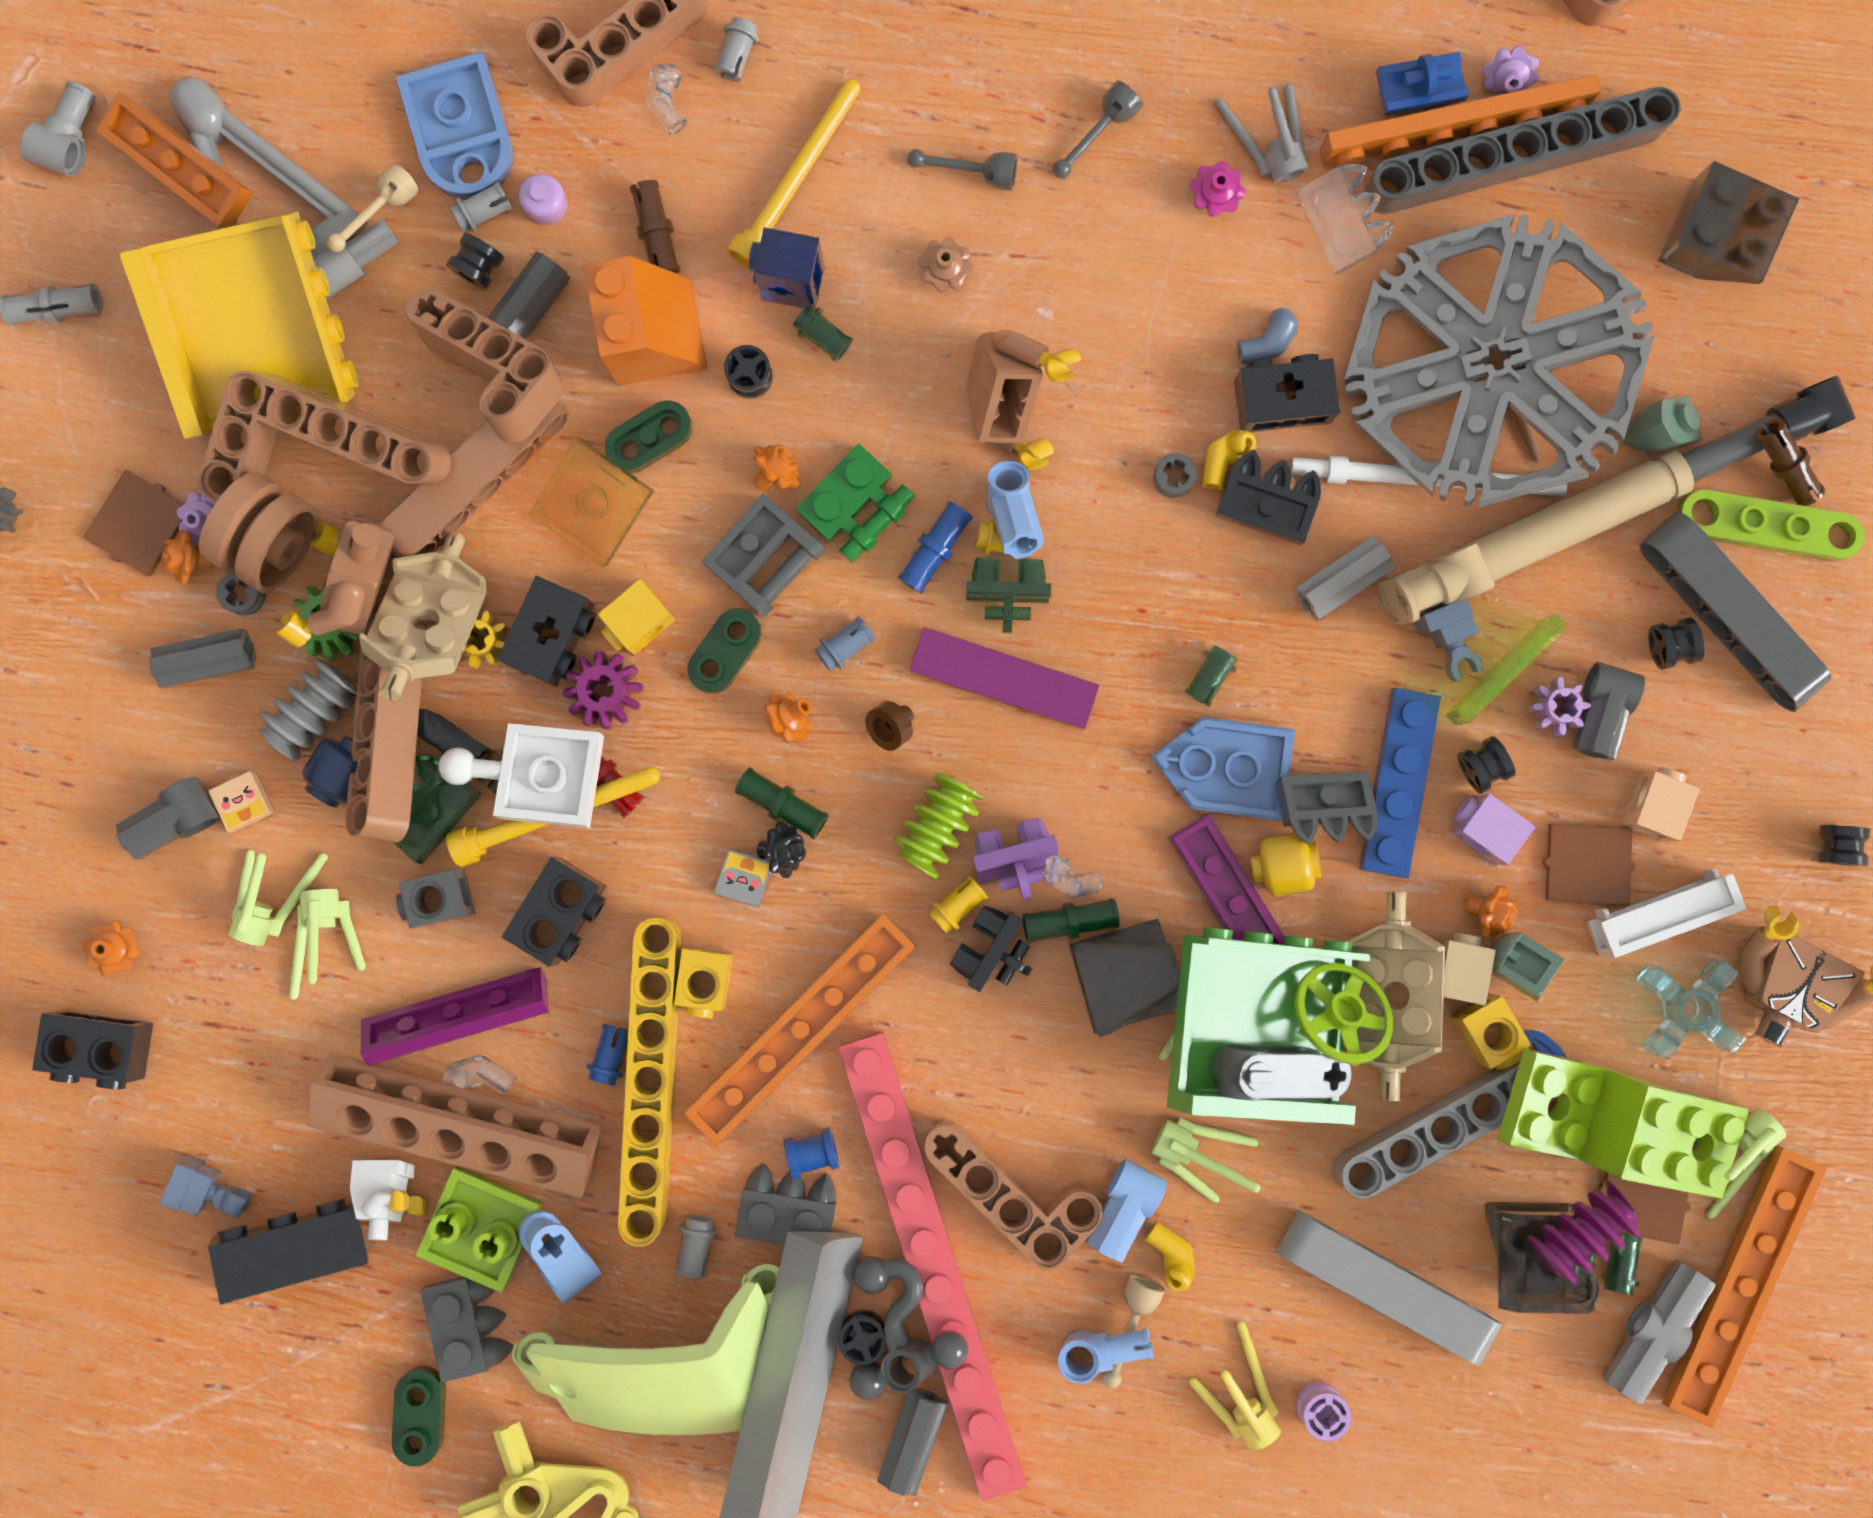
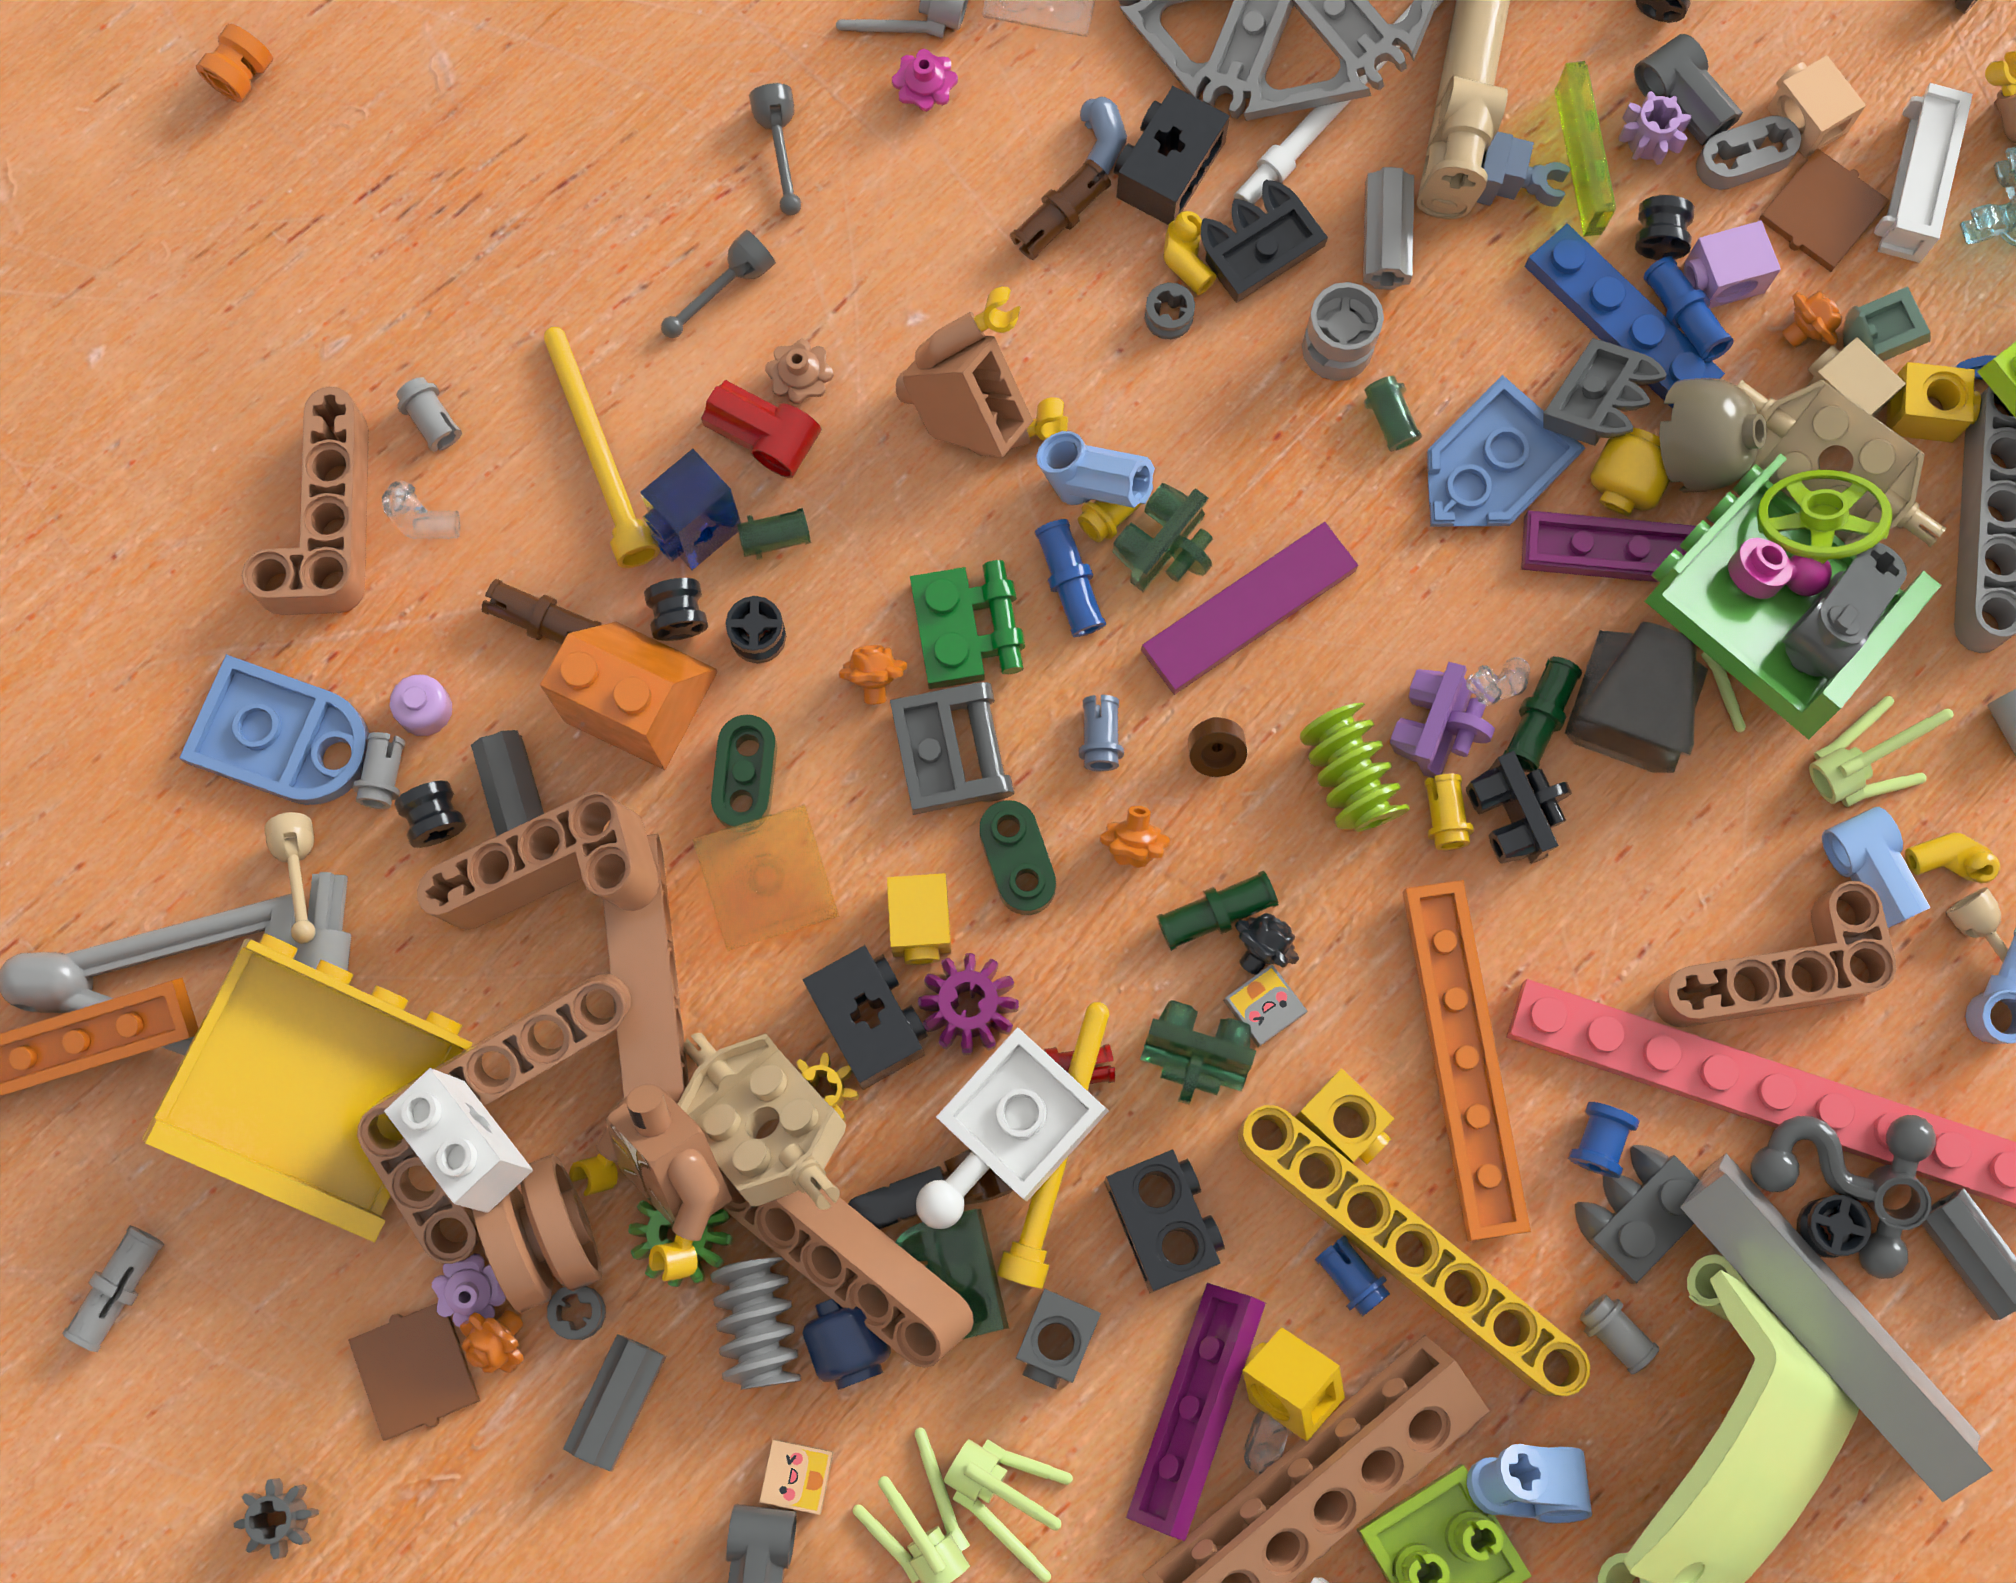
camera: 55 degrees left, 10 degrees down
(260, 441) = (458, 1141): none -> white brick
(509, 1064) = (1293, 1383): none -> yellow brick
(673, 838) = (1196, 1058): none -> clear green hips
(722, 310) = (676, 609): none -> black wheel
(888, 279) = (773, 434): none -> red piece
(1192, 349) = (1060, 209): none -> reddish brown pin
(1241, 600) = (1342, 331): none -> light grey wheel
(1258, 1003) = (1764, 568): none -> dark pink plate
(1345, 897) = (1710, 434): none -> dark tan cylinder
(1436, 821) = (1688, 309): none -> blue pin
(1597, 774) = (1744, 142): none -> light grey beam

